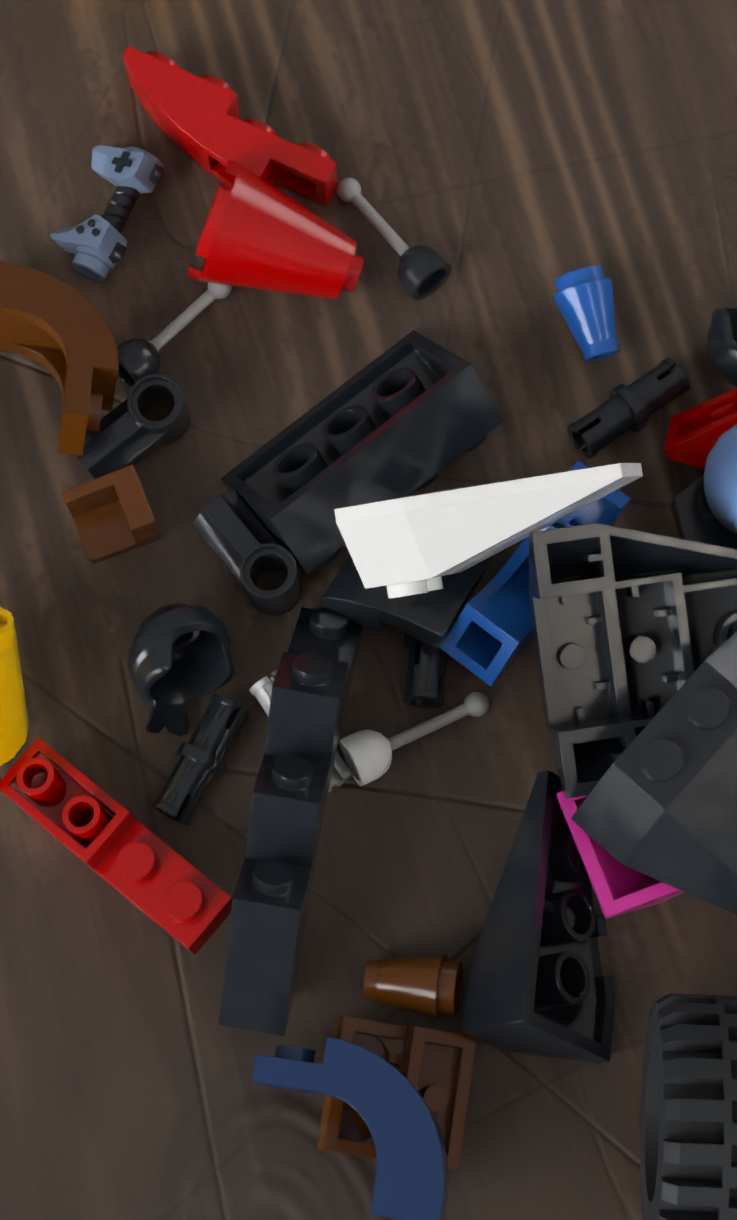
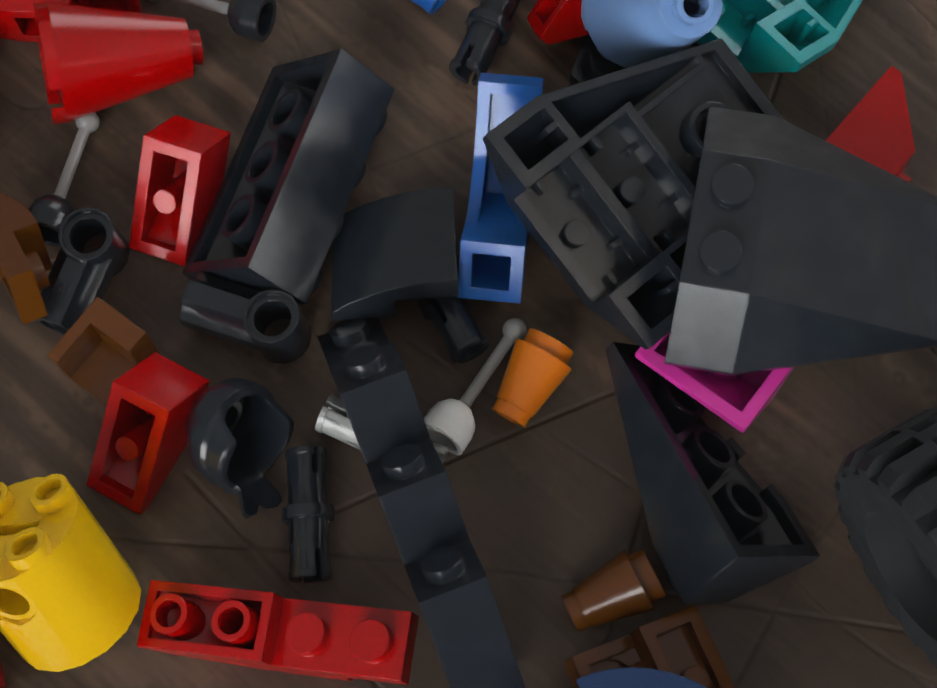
camera: 30 degrees left, 5 degrees down
(107, 604) = (143, 430): none -> red slope
(261, 398) = (176, 186): none -> red slope
(442, 533) = (413, 166): white wedge -> none
(462, 755) = (532, 375): none -> orange cone

